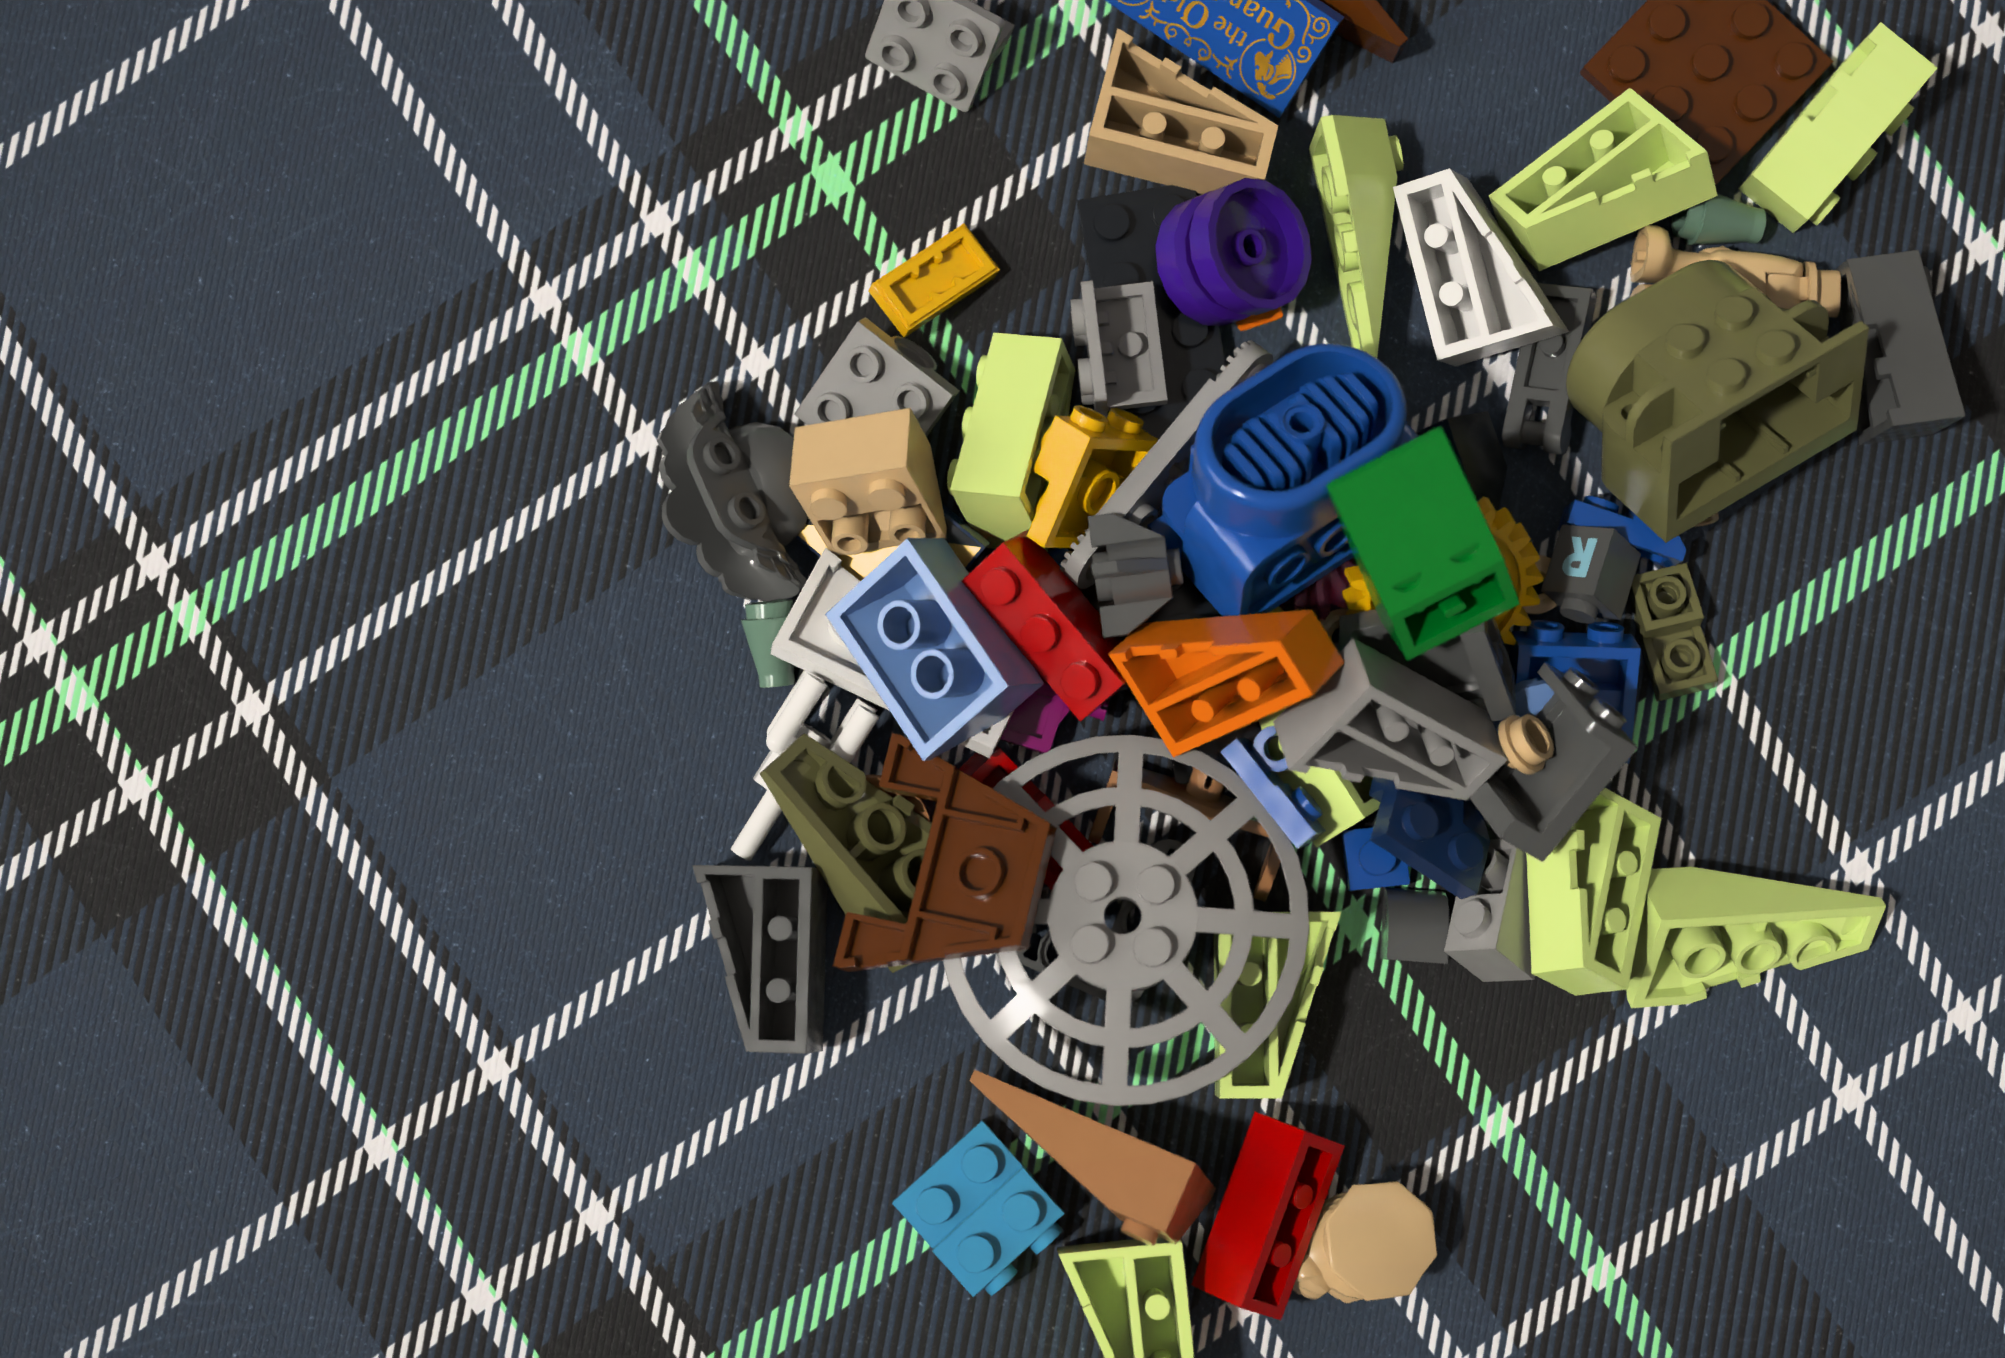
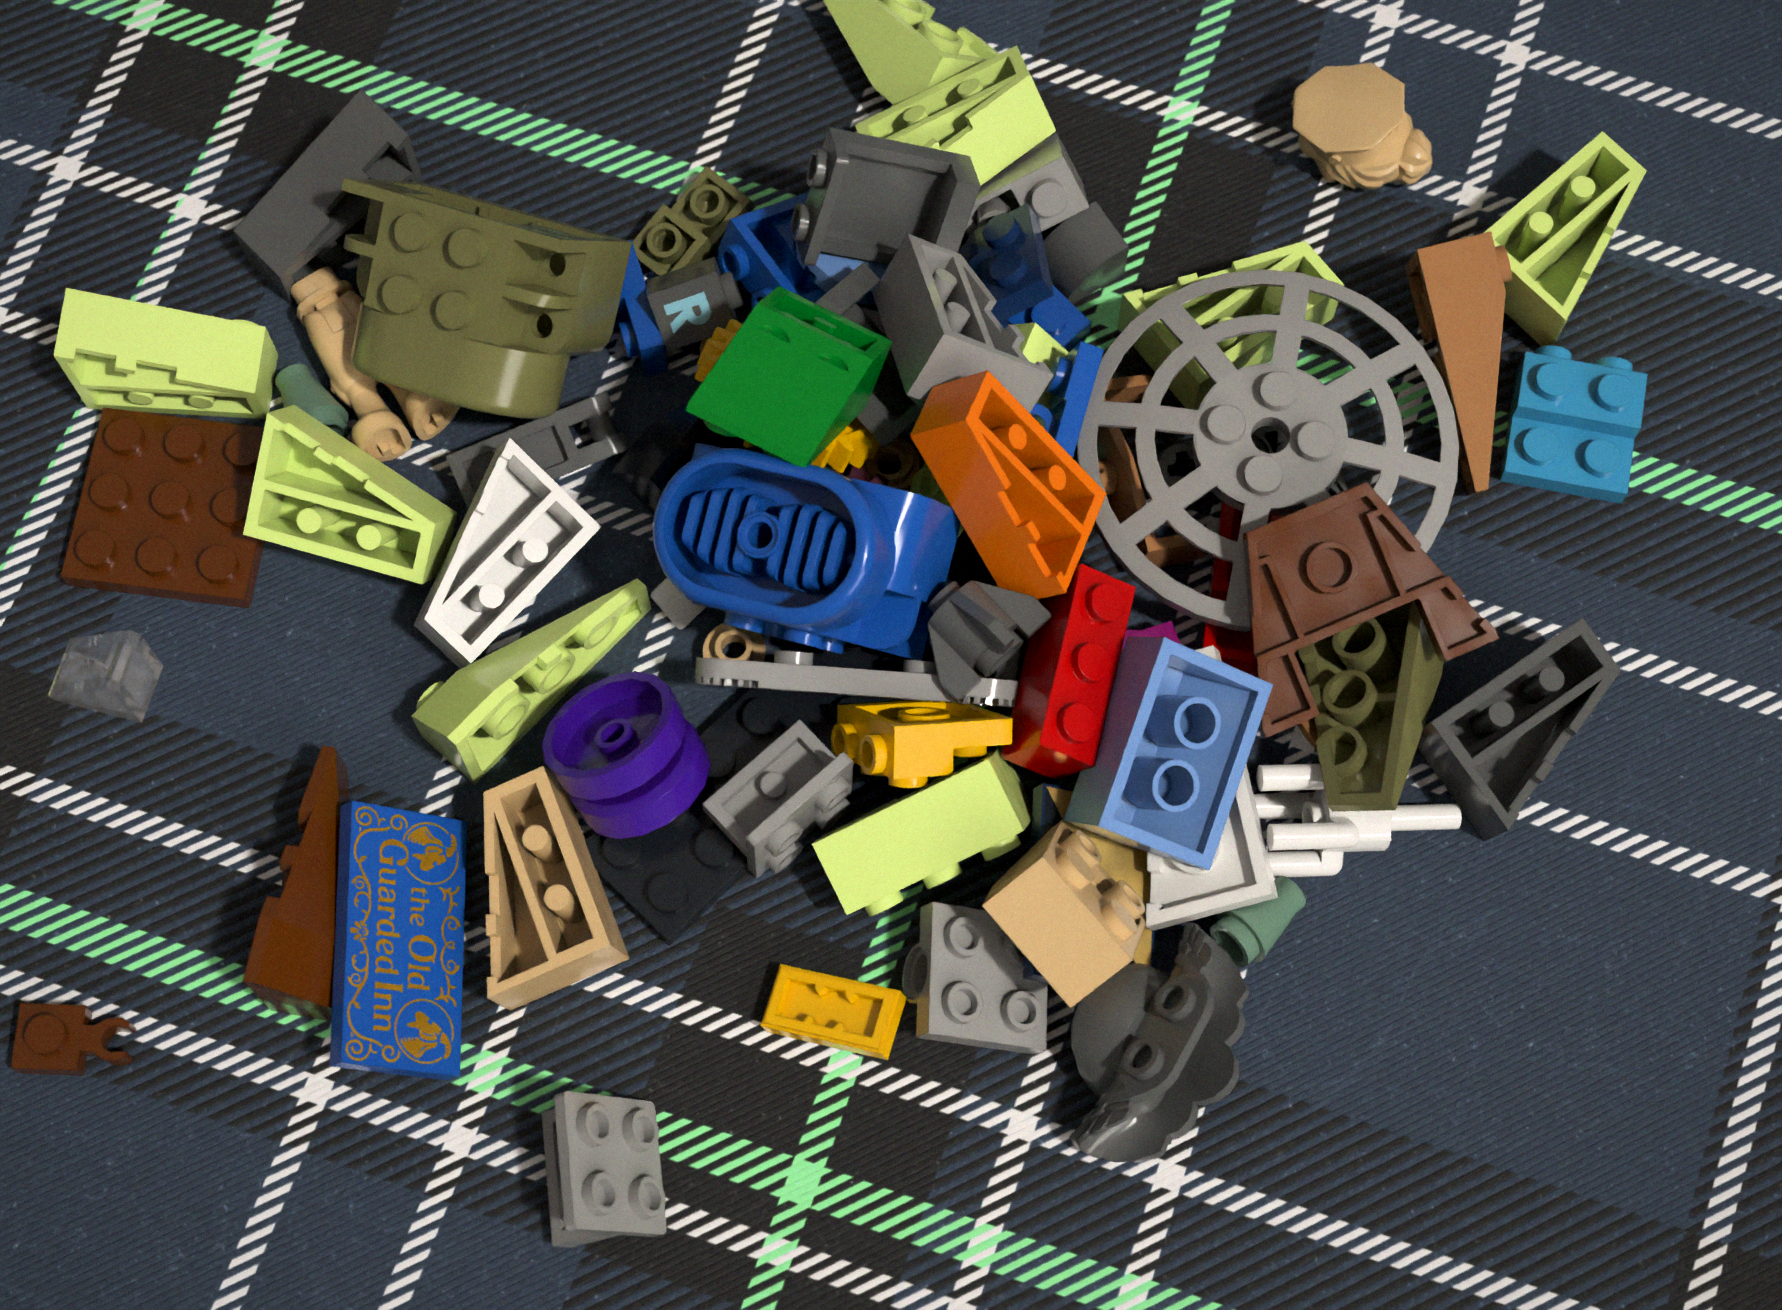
camera: 125 degrees left, 15 degrees down
(1267, 1216) = (1398, 206): red brick -> none
(1525, 743) = (880, 237): tan plate -> none

